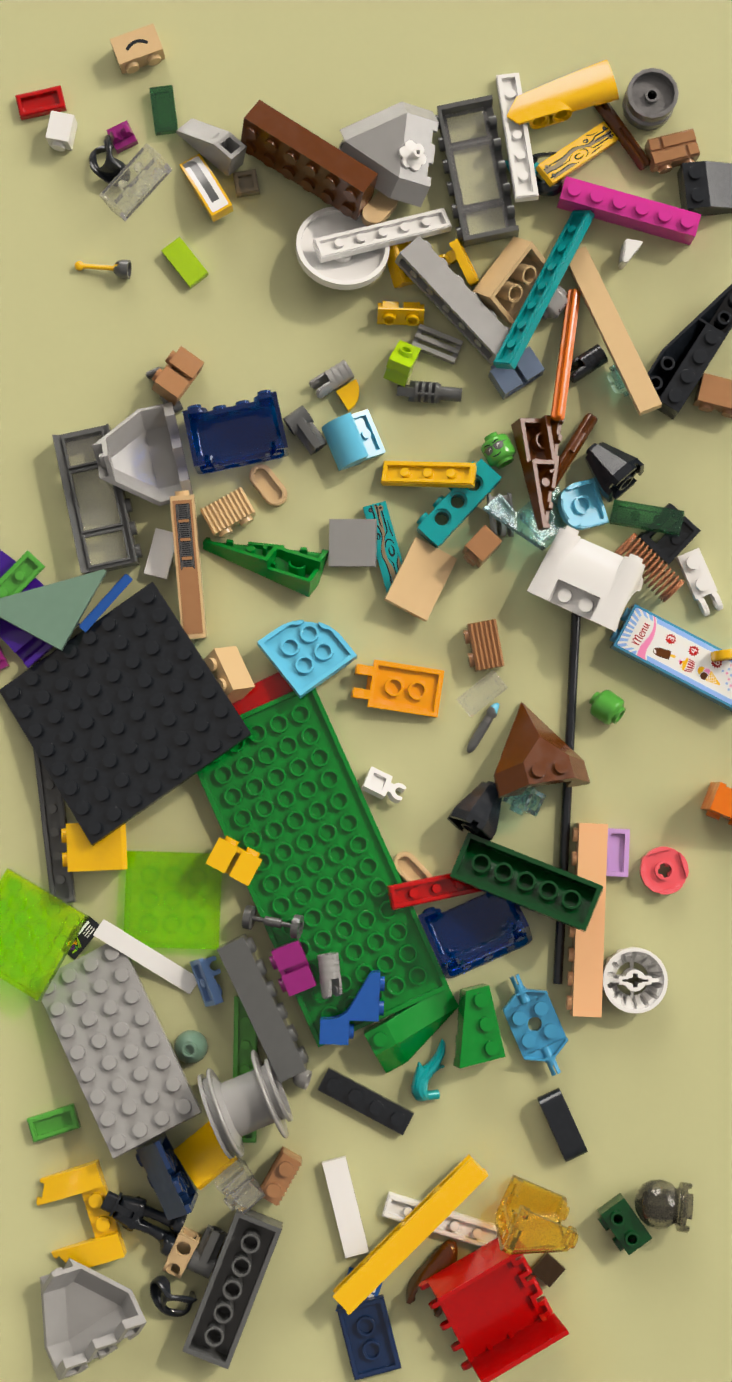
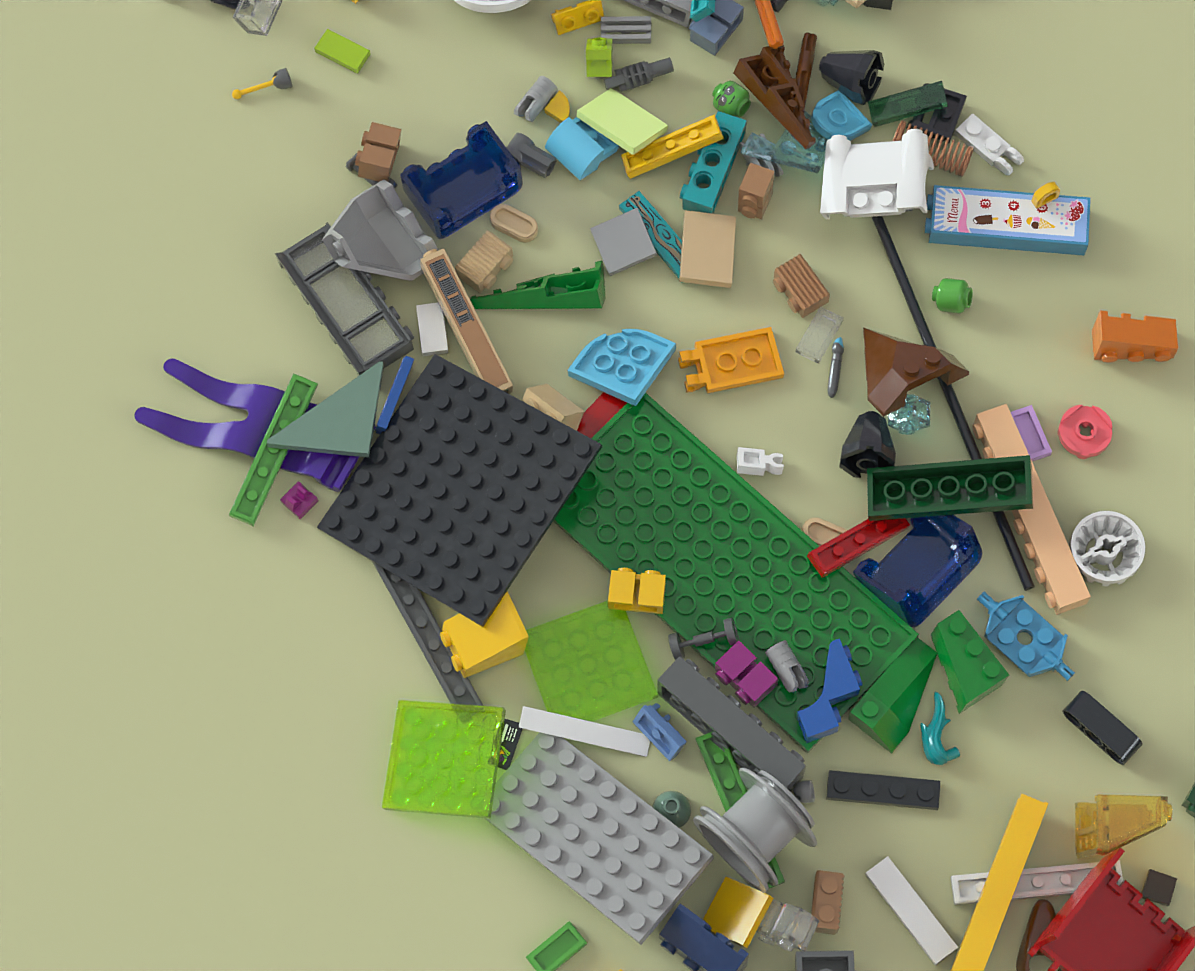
camera: 10 degrees left, 15 degrees down
(396, 432) = (622, 121): none -> yellowish green tile

